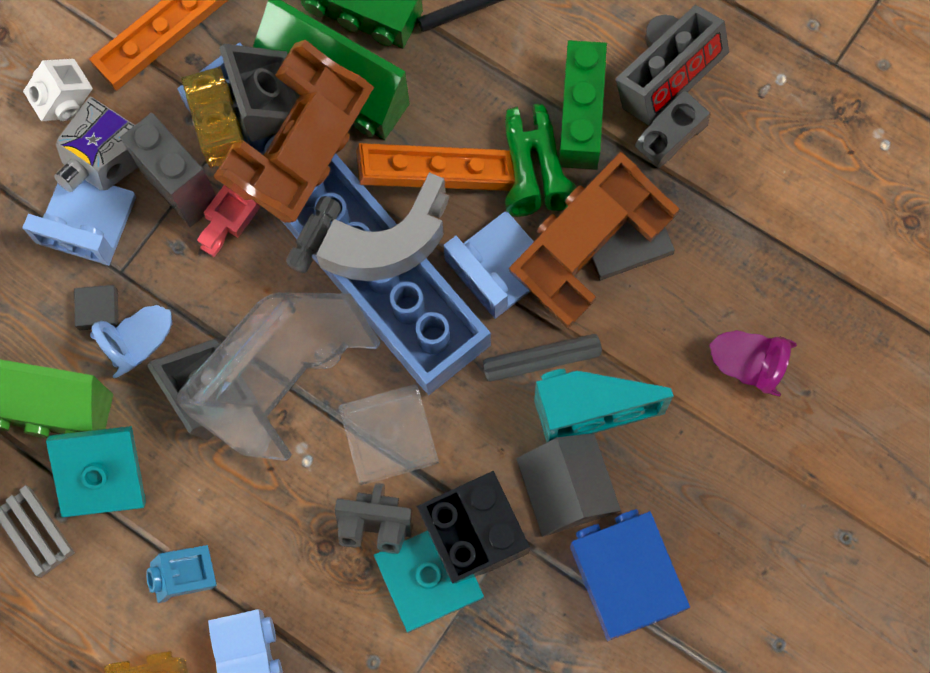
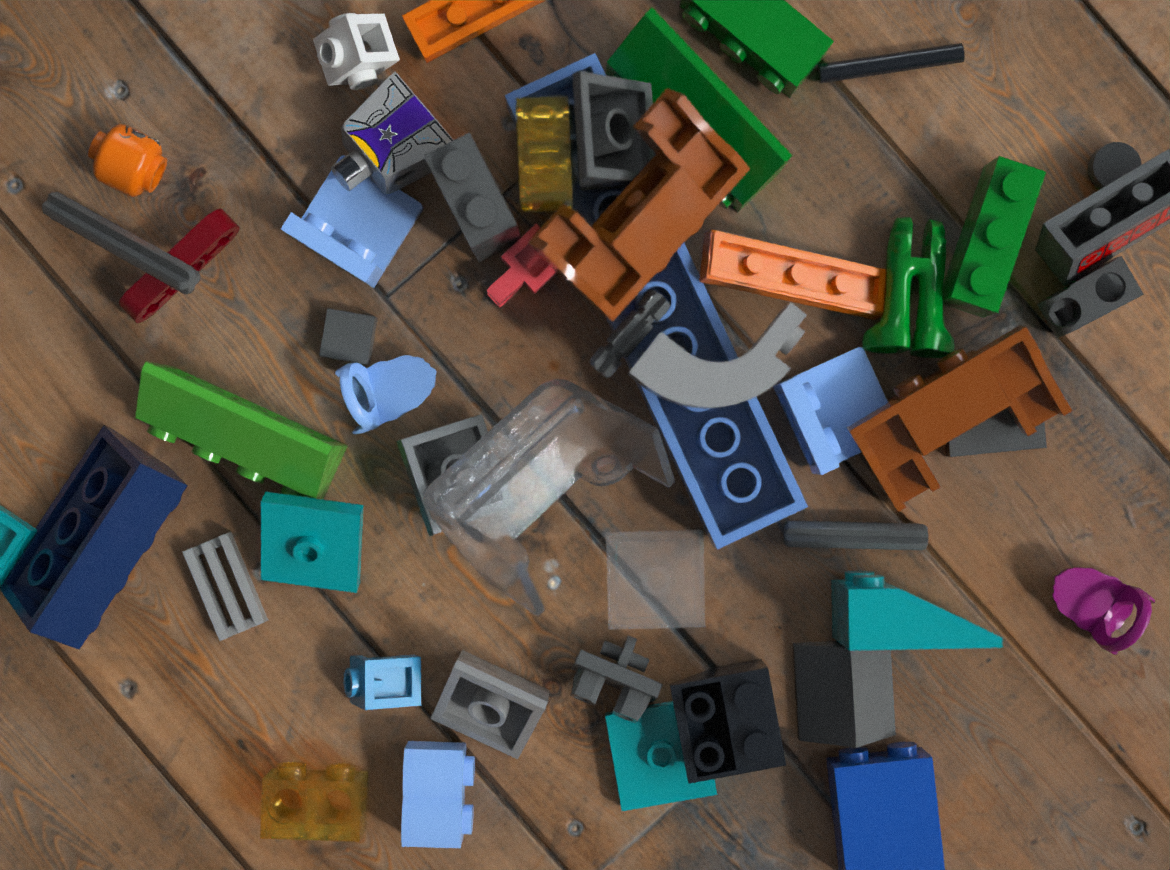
camera: 15 degrees right, 15 degrees up
(273, 570) = (490, 704): none -> light grey slope

